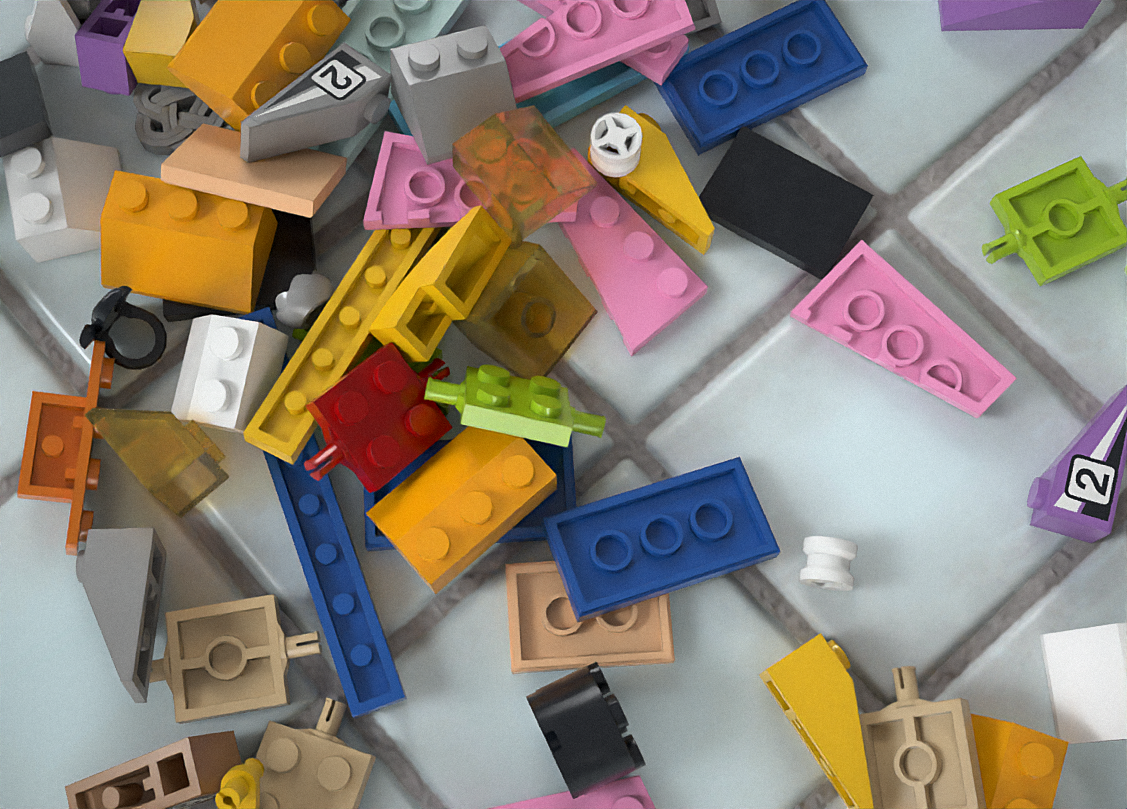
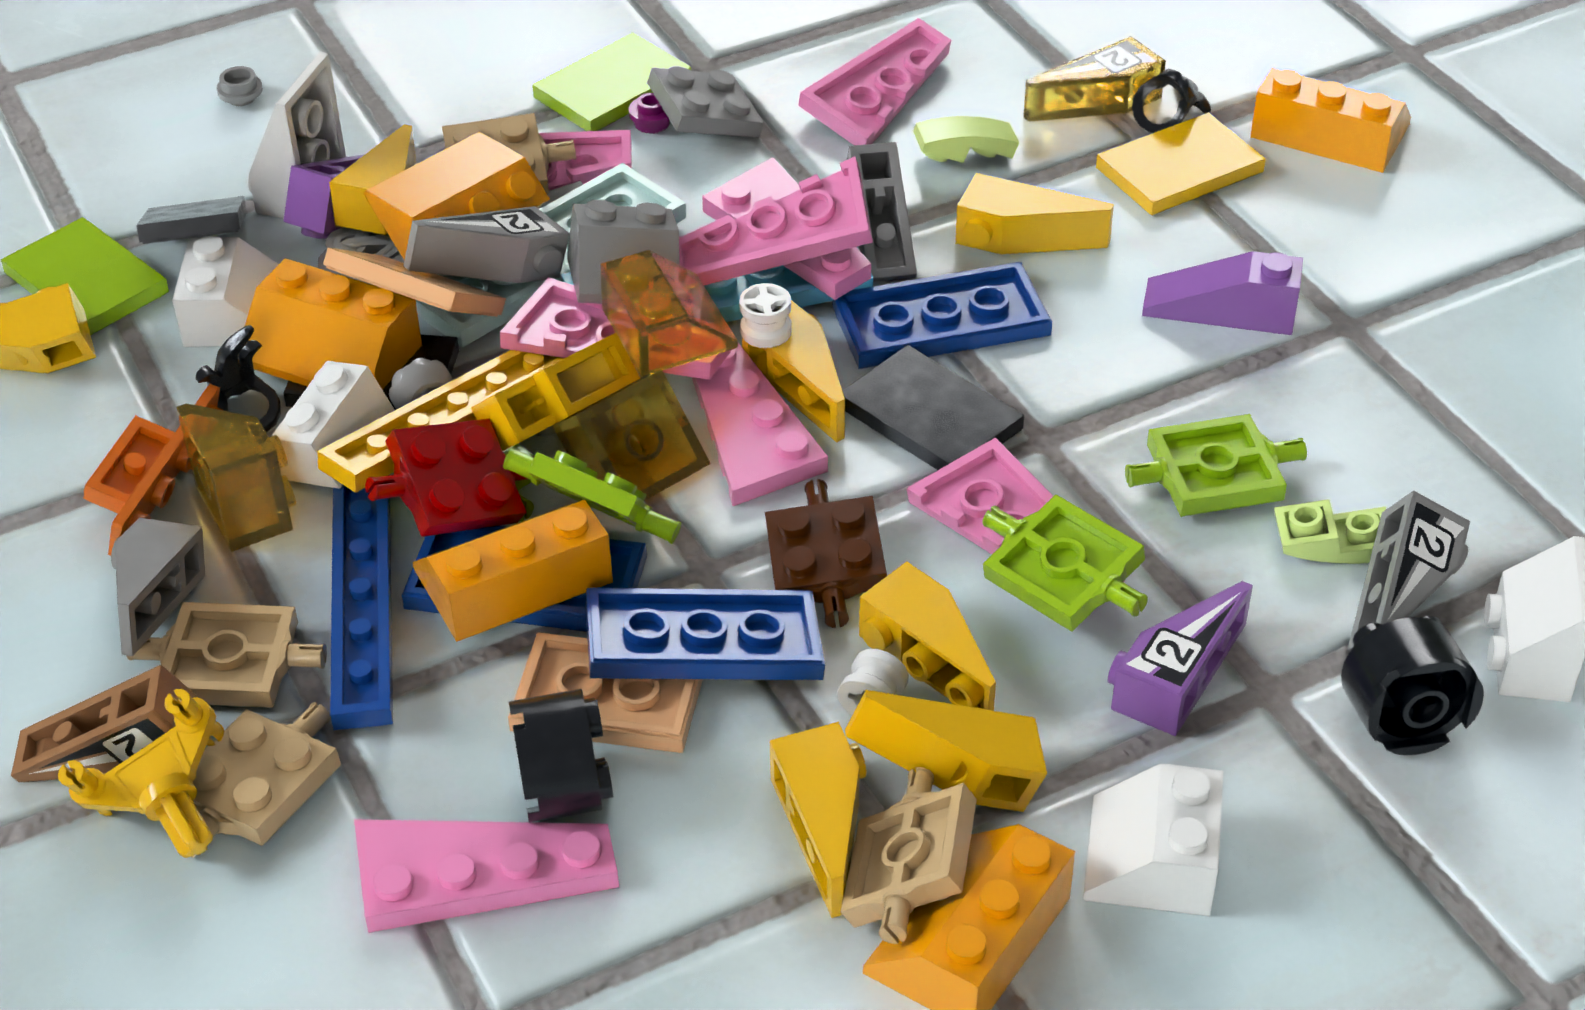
camera: 15 degrees right, 30 degrees down
(737, 402) = (826, 549): none -> reddish brown plate
(861, 491) = (927, 633): none -> yellow slope
(933, 637) = (985, 749): none -> yellow slope
(969, 392) = (1064, 562): none -> lime plate

